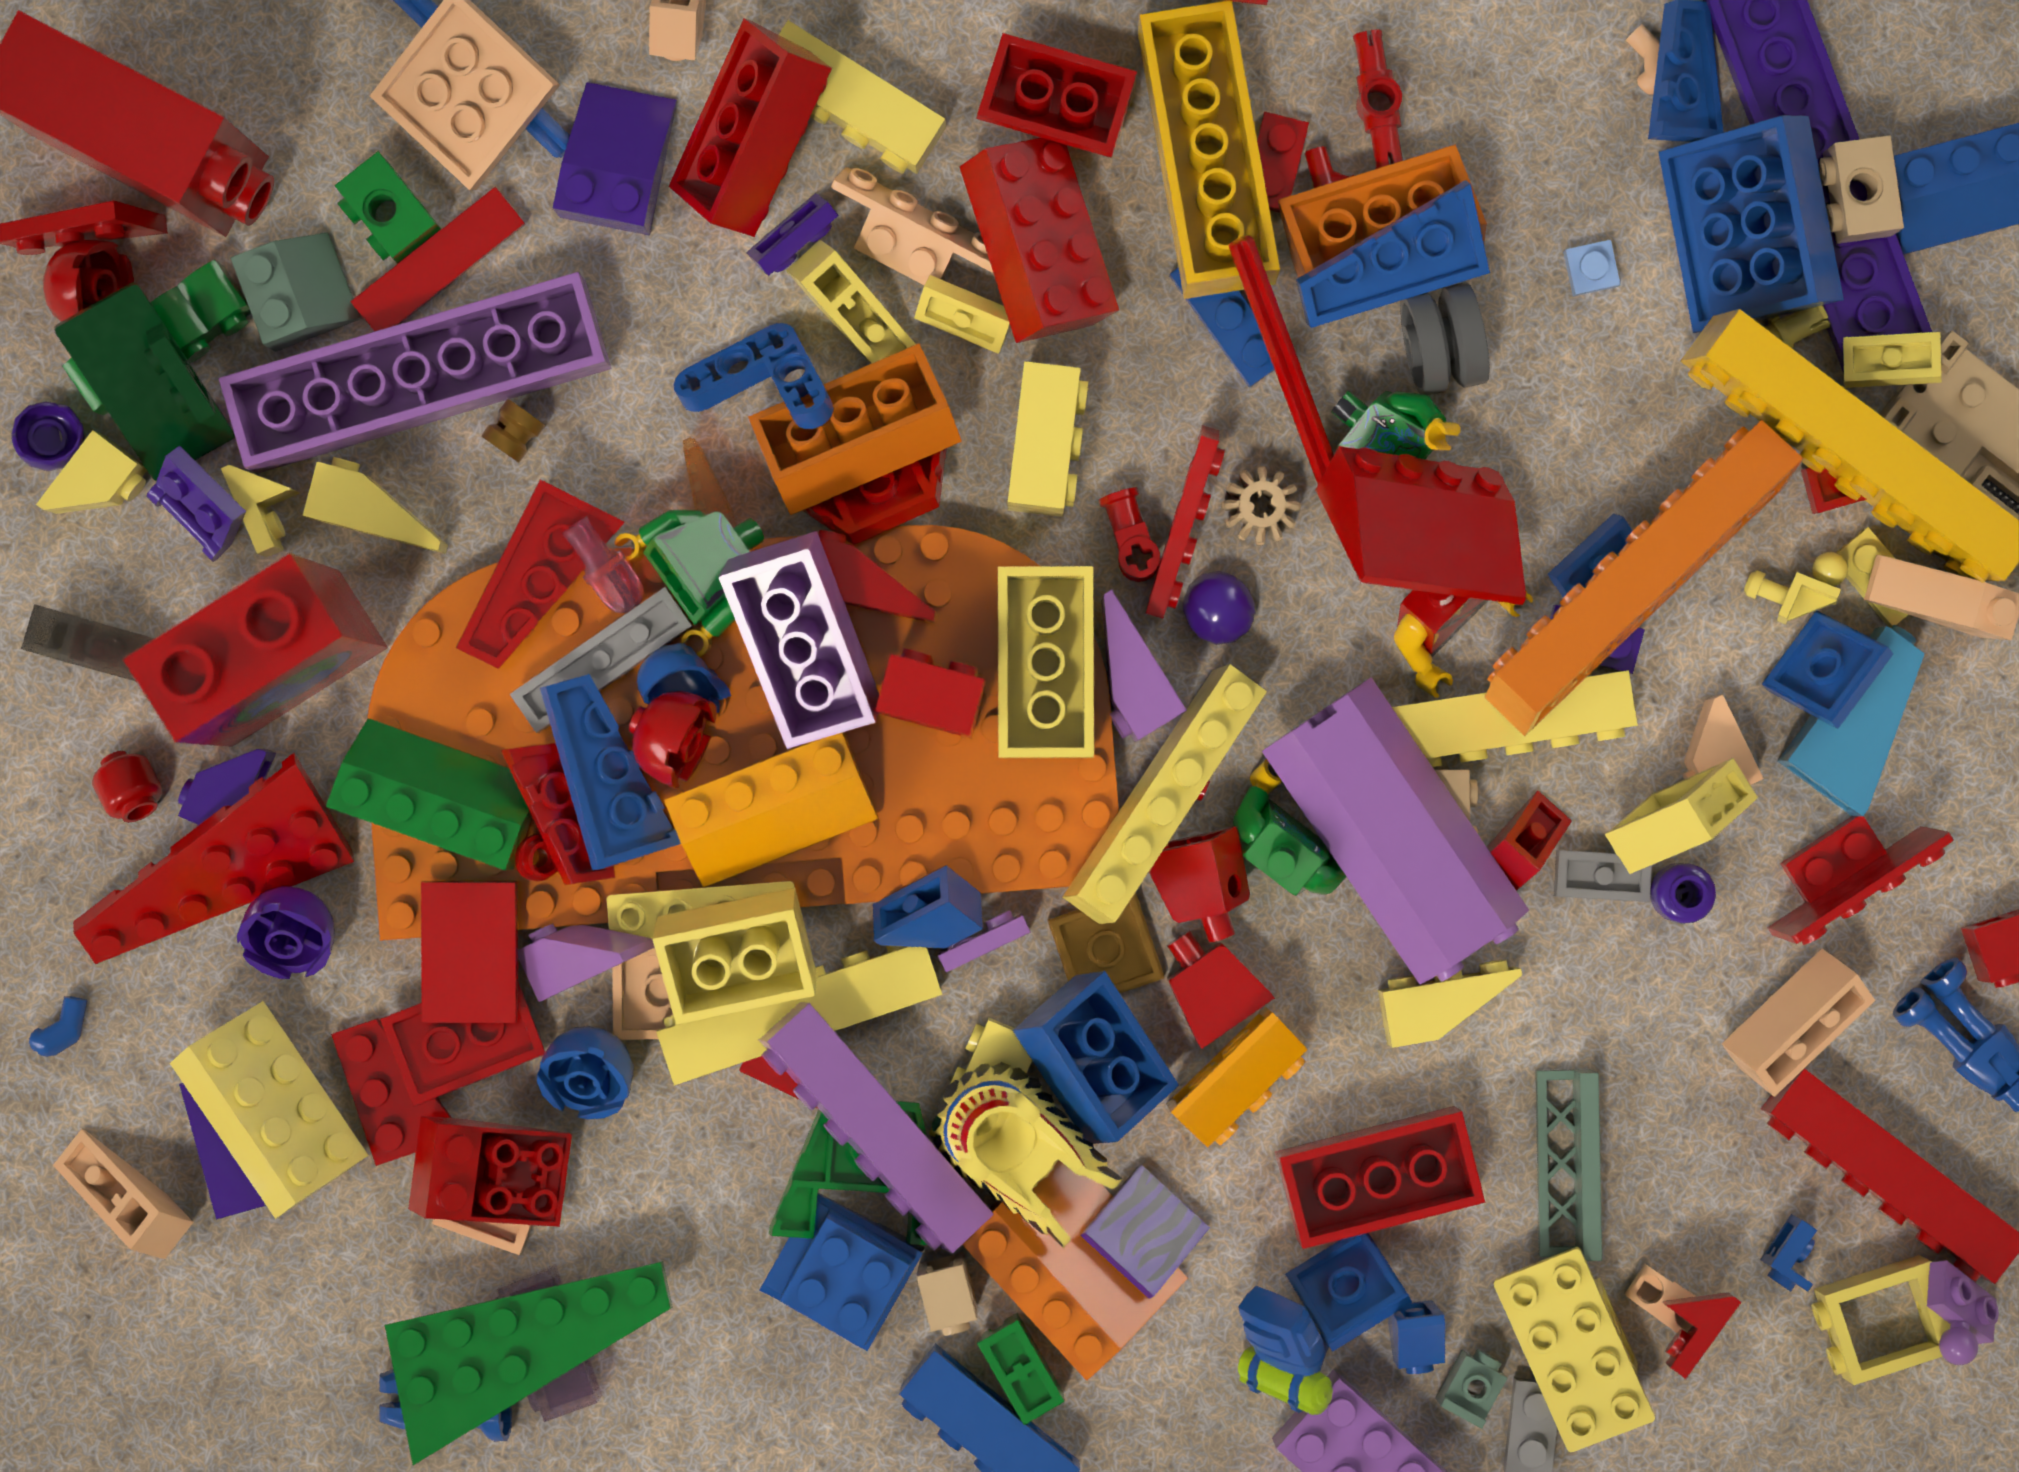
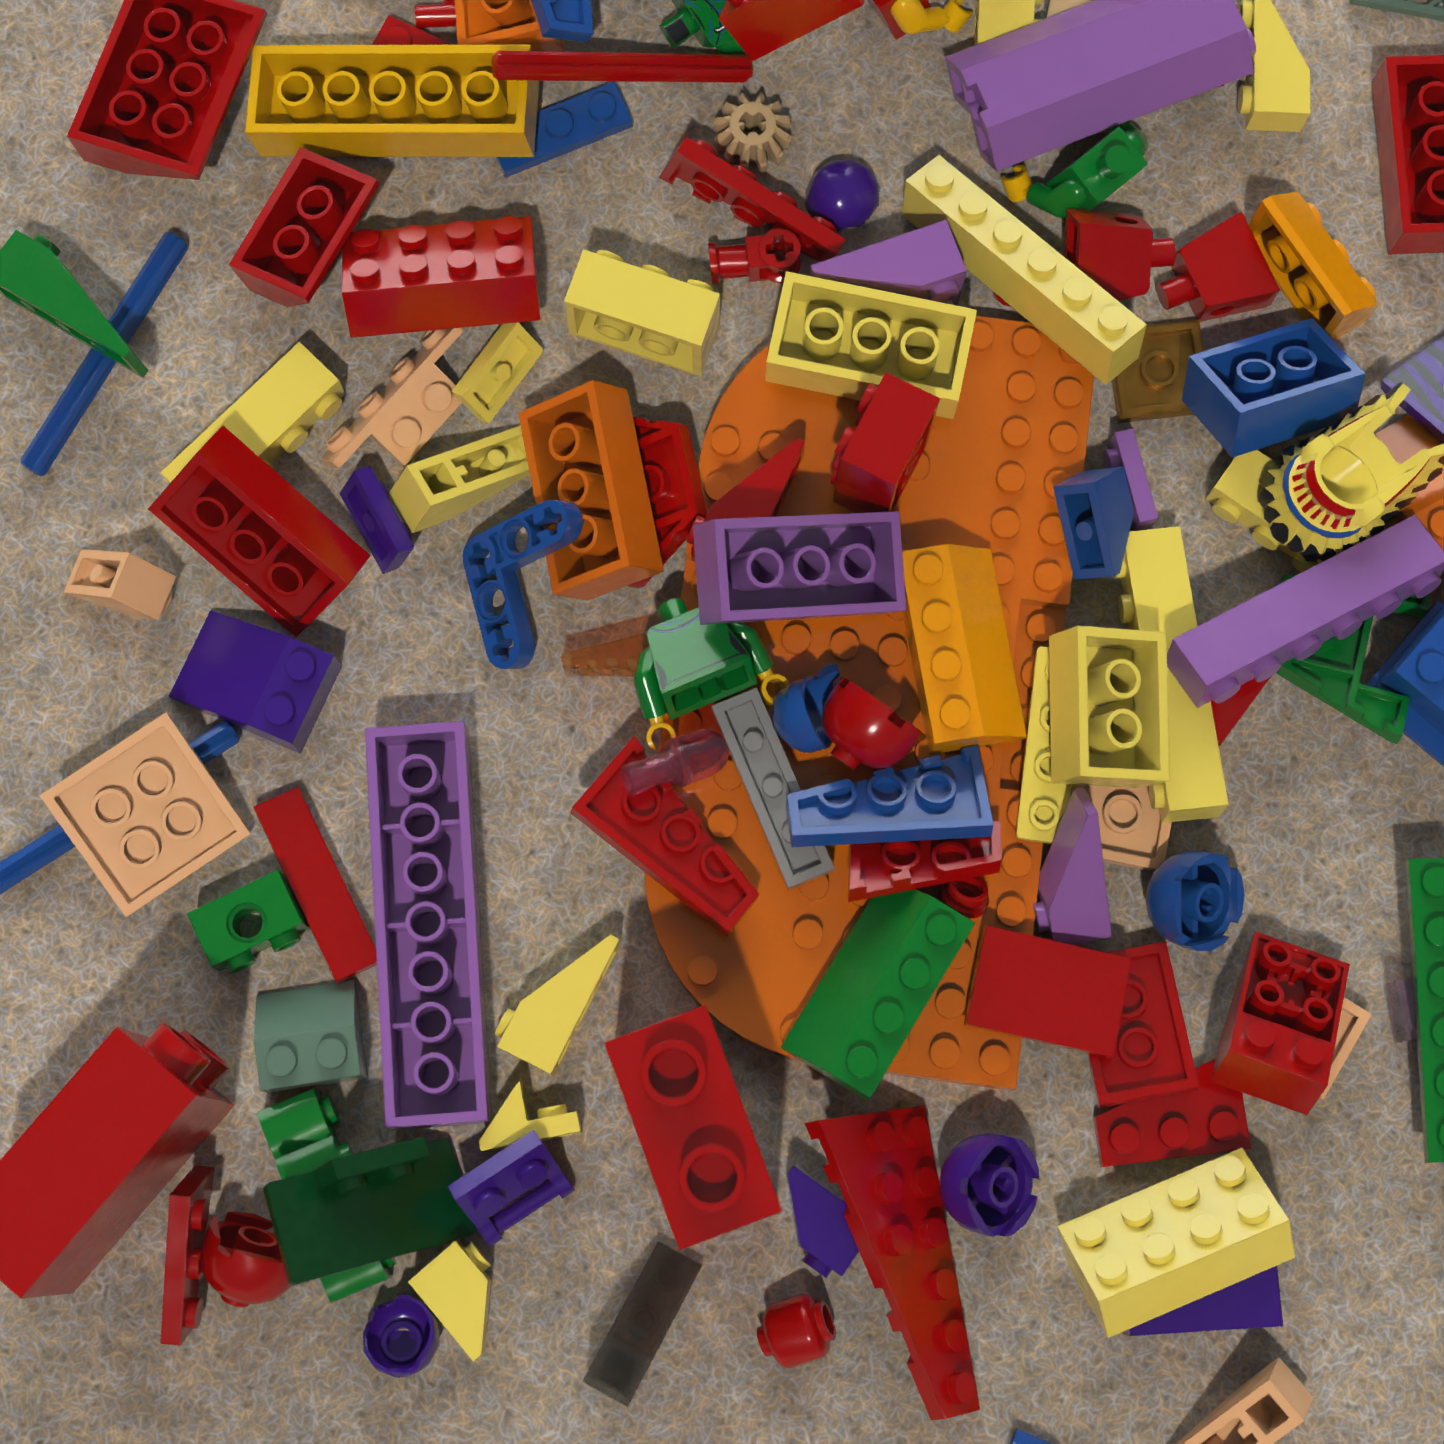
camera: 80 degrees left, 10 degrees down
(513, 430) = (510, 841): pearl gold wheel -> none

